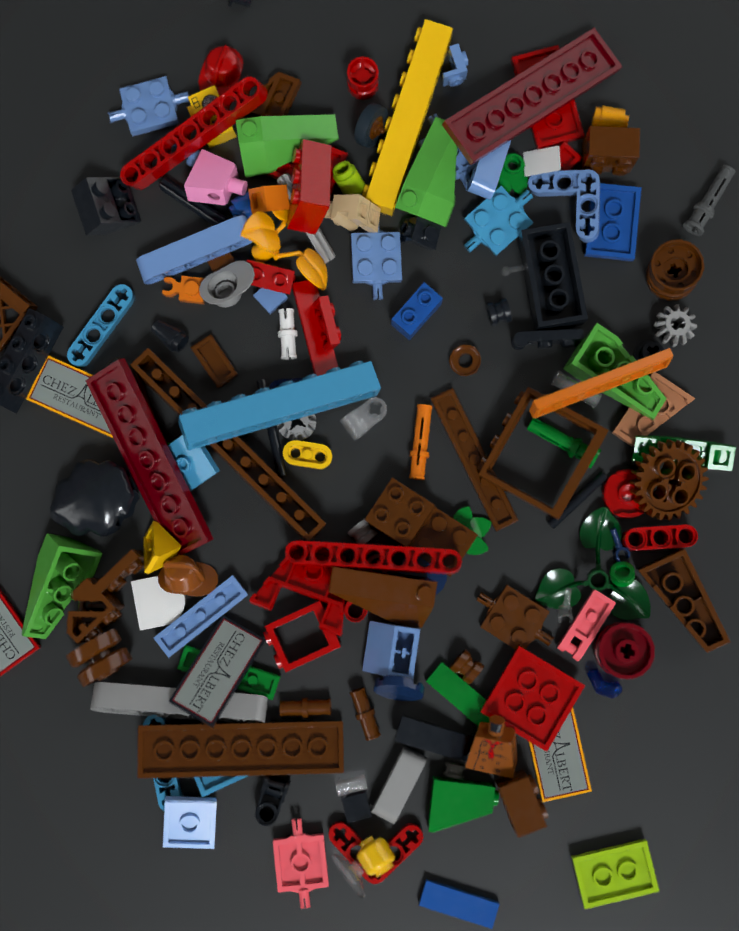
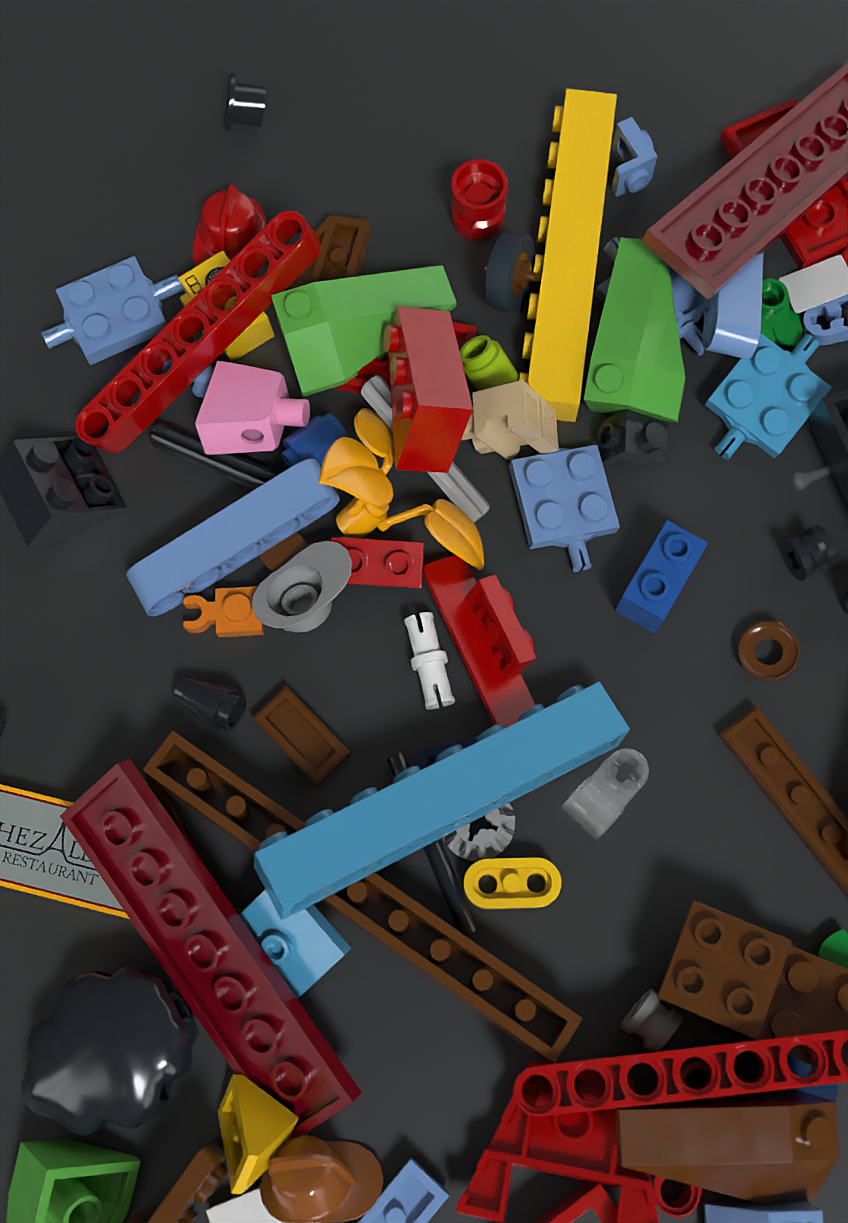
camera: 10 degrees left, 10 degrees down
(104, 327) = (70, 704): dark azure beam -> none
(269, 198) = (354, 417): orange panel -> none
(270, 299) = (385, 603): medium blue tile -> none
(423, 413) = (728, 877): orange pin -> none

